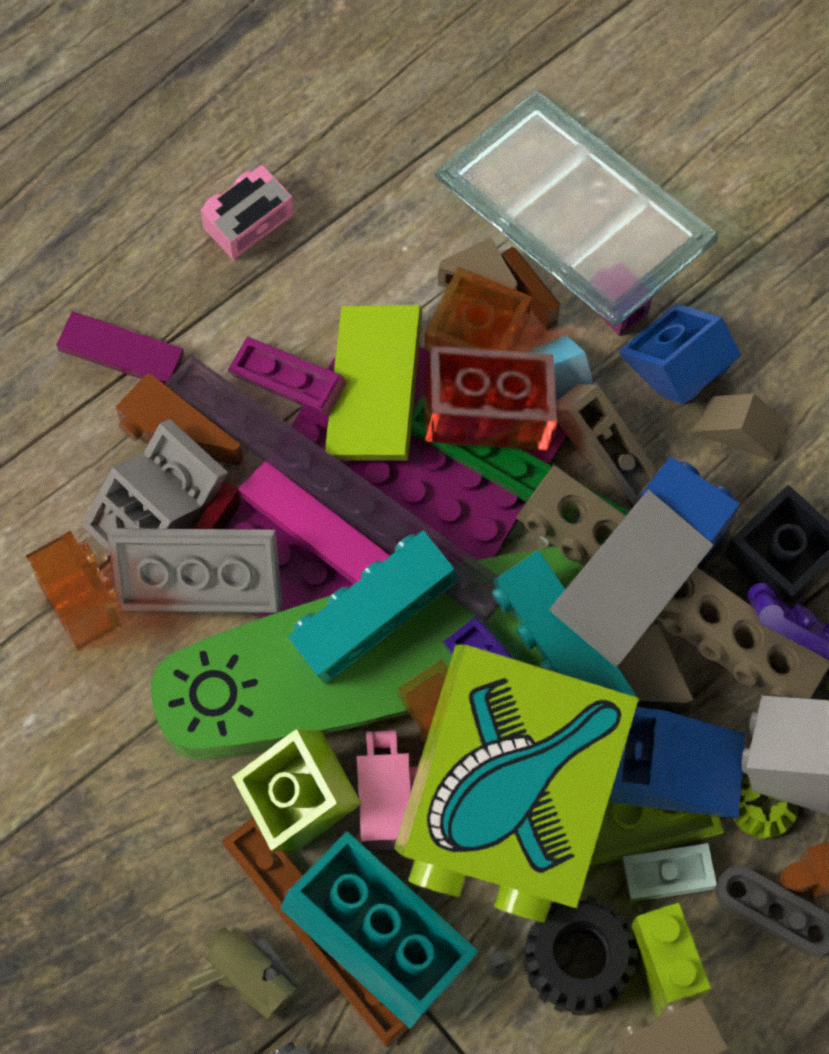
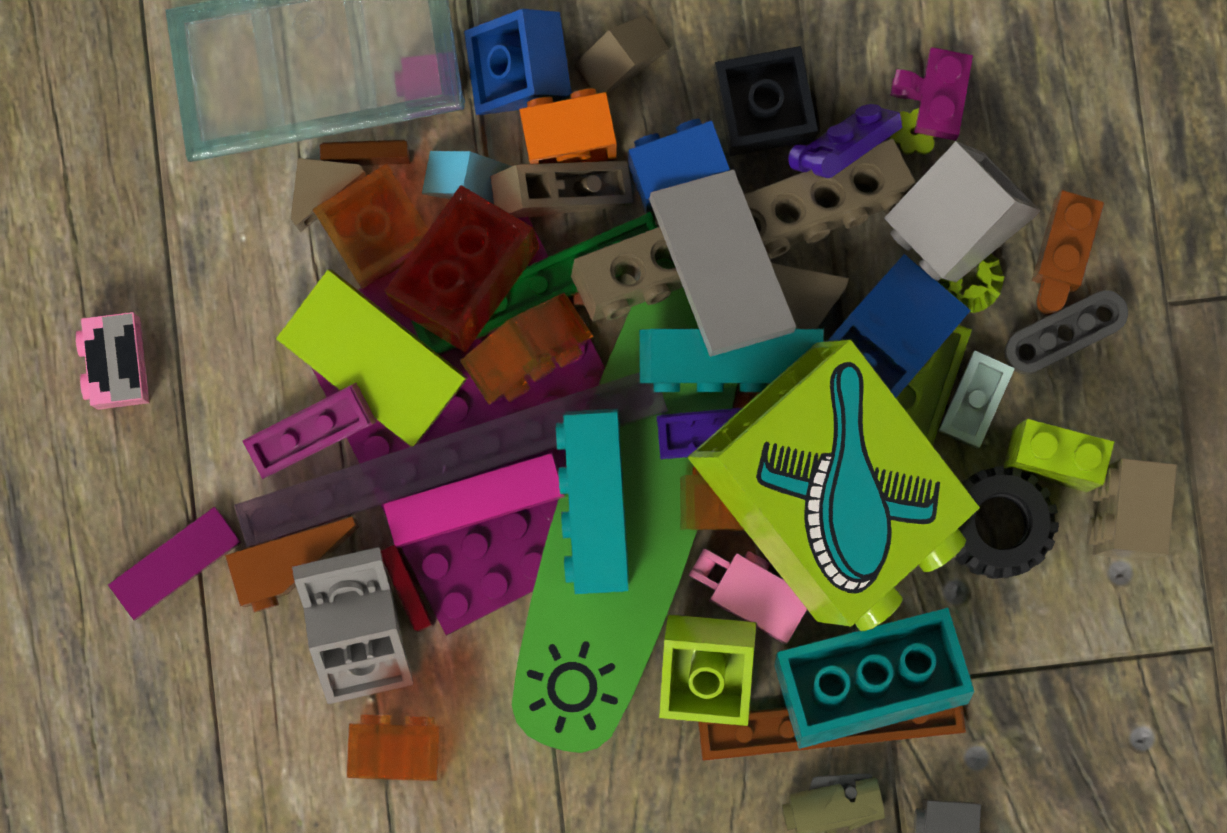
camera: 55 degrees left, 15 degrees up
(196, 570) = (449, 632): light grey tile -> none
(462, 481) = (527, 349): none -> clear orange brick
(655, 412) = (569, 129): none -> orange brick

